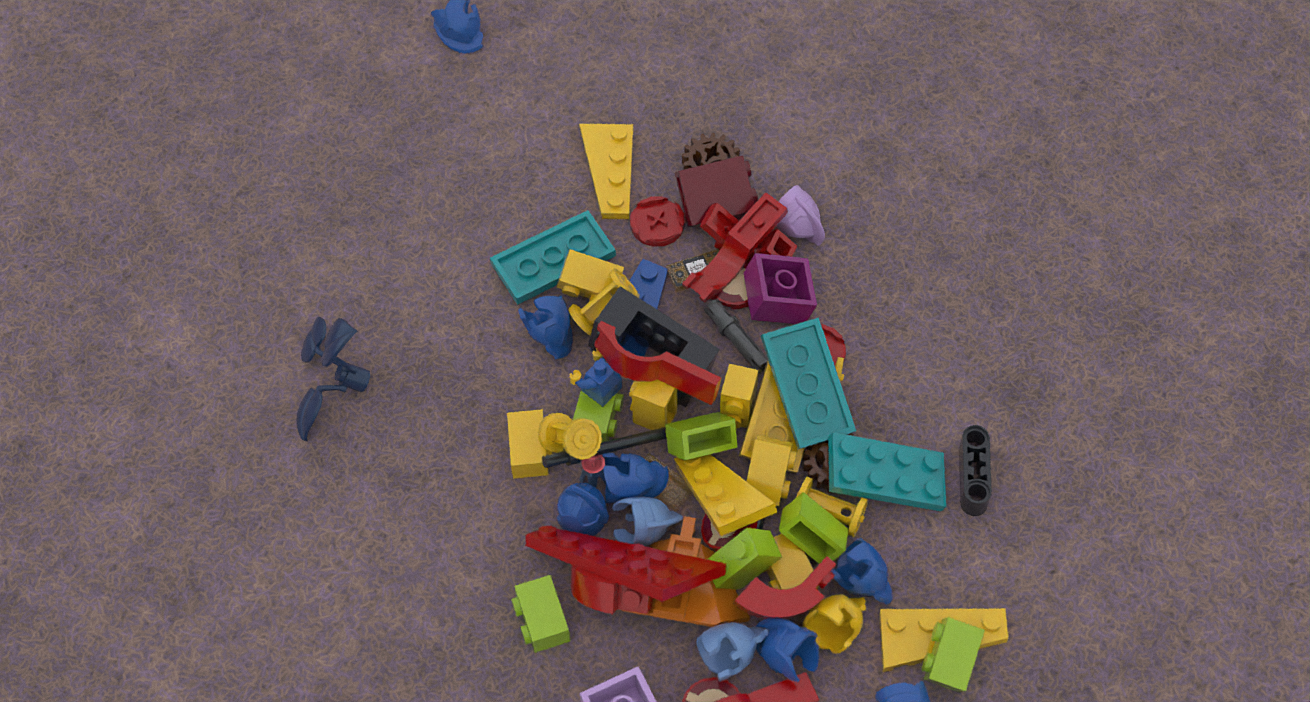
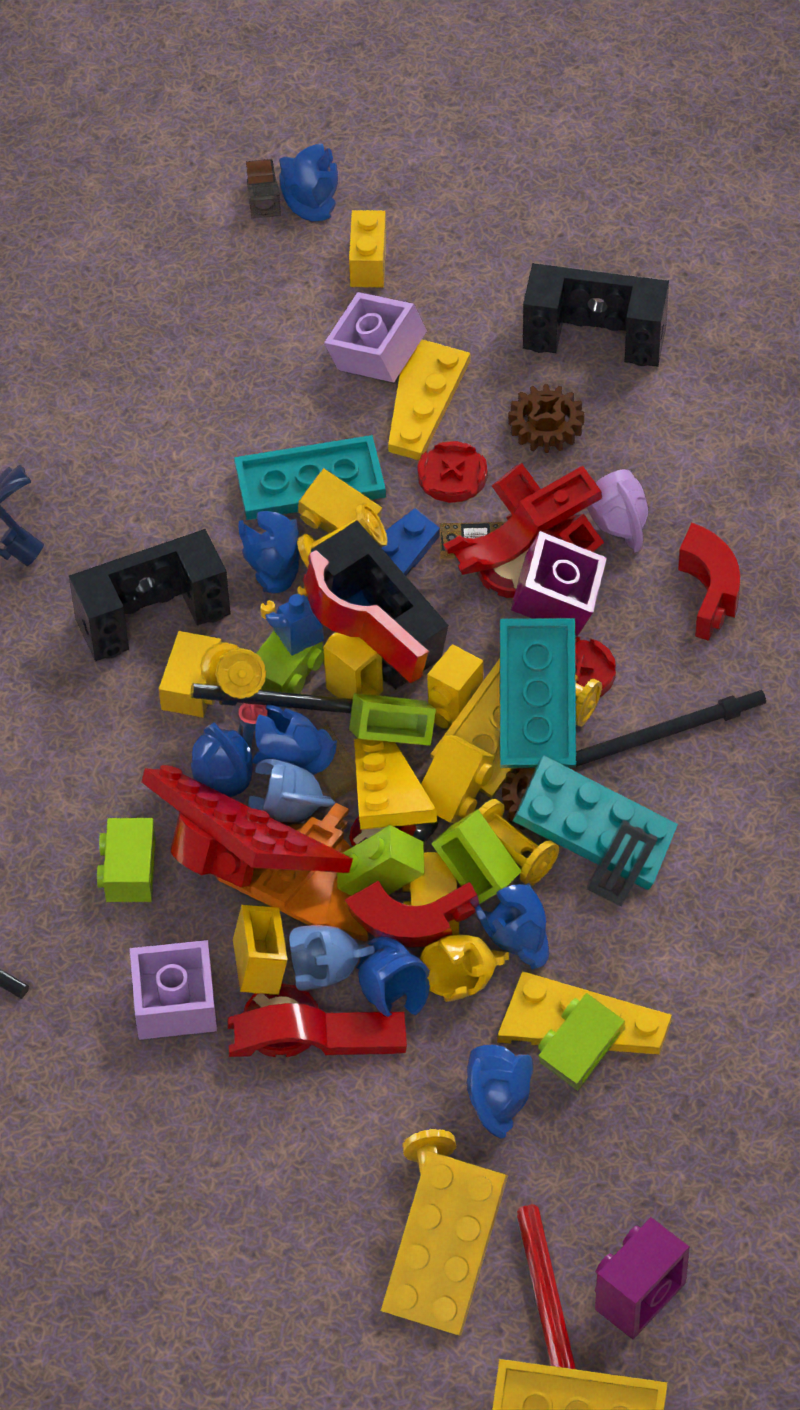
camera: 20 degrees right, 5 degrees down
(423, 37) = (262, 186): none -> clear smoke leg
(439, 400) = (171, 569): none -> black plate
(524, 64) = (367, 248): none -> yellow piece
(560, 132) = (375, 337): none -> lavender brick
(678, 658) = (260, 949): none -> yellow piece
(713, 183) = (538, 442): dark red brick -> none
(730, 328) = (485, 613): dark grey pin -> none
(738, 55) = (567, 294): none -> black plate
(889, 244) = (715, 565): none -> red arch
(931, 506) = (636, 835): none -> black tile
(937, 350) = (726, 708): none -> black bar
(981, 485) = (705, 873): black beam -> none

